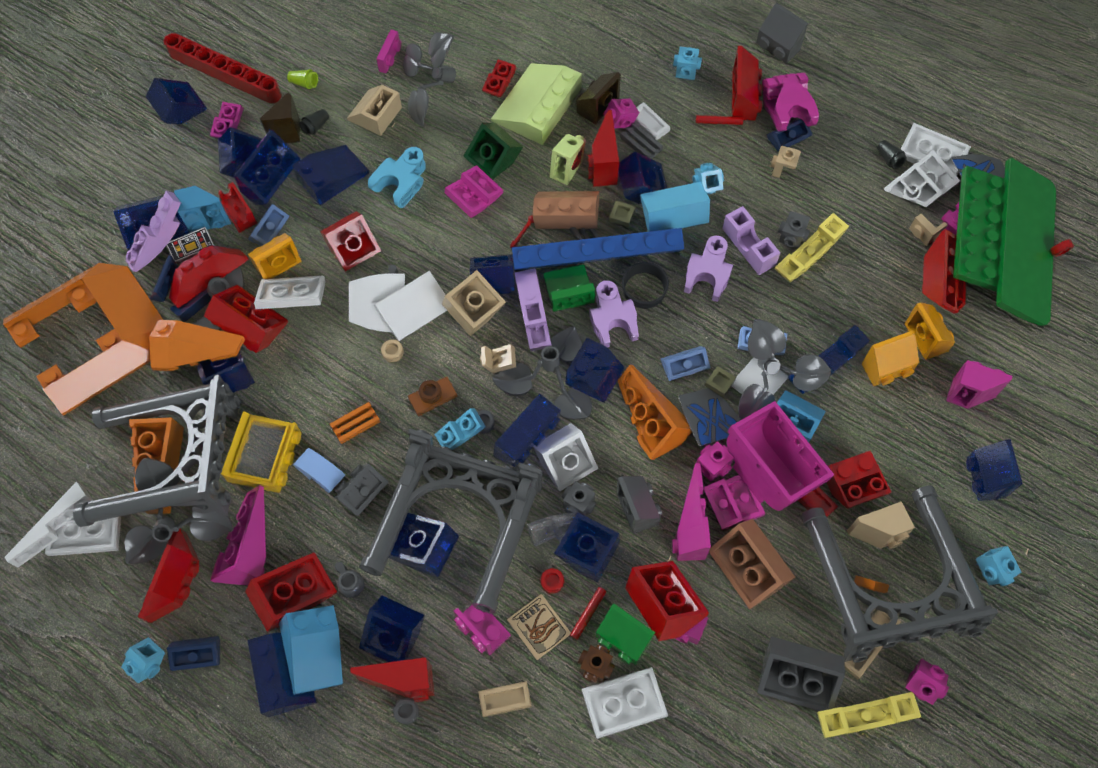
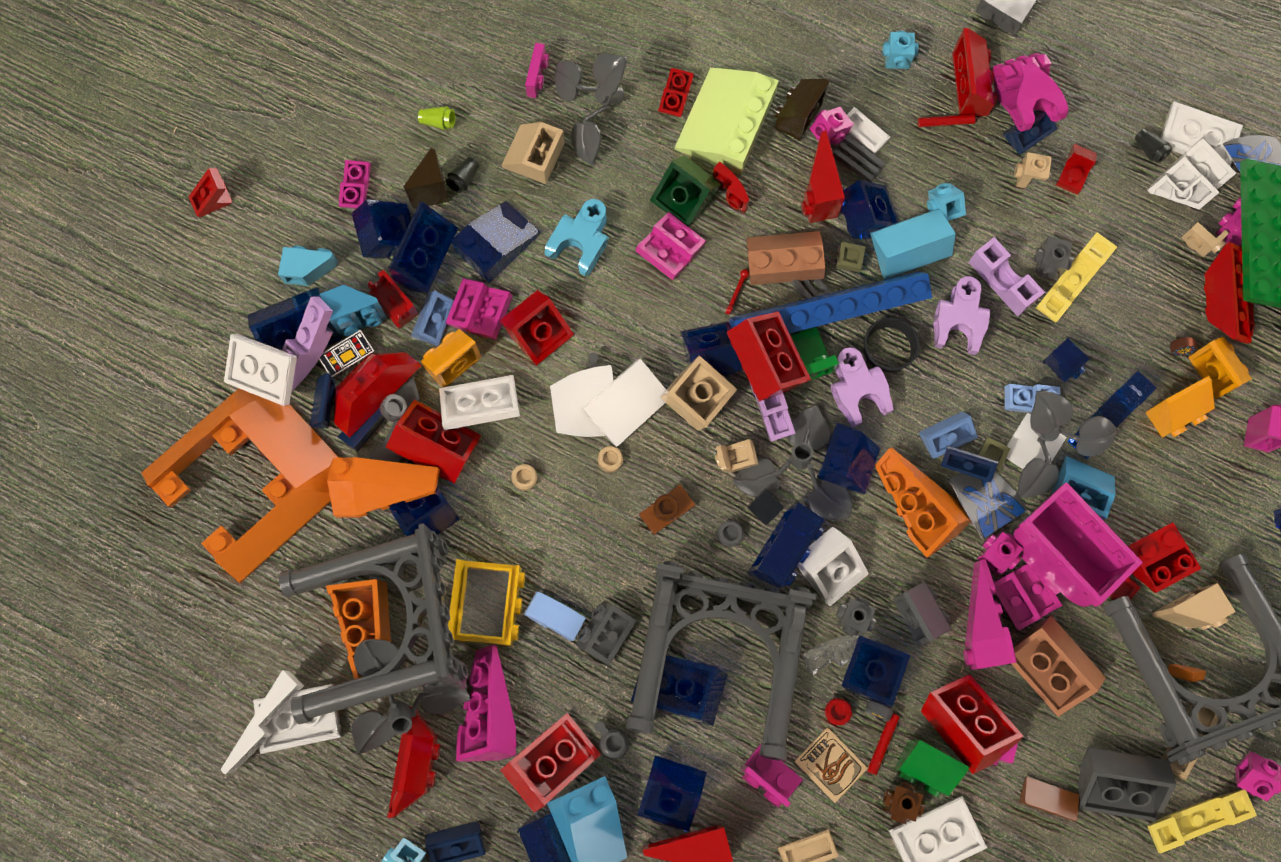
camera: 10 degrees left, 10 degrees up
(110, 115) = (209, 194): none -> red slope
(116, 246) = (260, 369): none -> white tile
(172, 175) = (305, 266): none -> medium azure slope
(174, 100) = (286, 165): clear blue slope -> none
(223, 68) = (327, 106): red beam -> none
(305, 223) = (479, 309): none -> dark pink slope
(317, 357) = (524, 477): none -> tan tile
(352, 415) = (600, 538): orange tile -> none
(461, 430) = (706, 548): medium azure slope -> none
(516, 402) = (765, 506): none -> black tile
(533, 154) = (736, 194): none -> red slope
(534, 274) = (768, 355): none -> red slope
(568, 150) = (778, 186): yellowish green torso -> none
(587, 582) = (879, 710): none -> dark grey tile
(697, 384) = (969, 463): none -> dark blue slope
(732, 680) = (1050, 799): none -> slope
(795, 312) = (1067, 360): none -> clear blue brick
(824, 166) = (1076, 169): none -> red slope
(899, 312) = (1183, 346): none -> copper tile

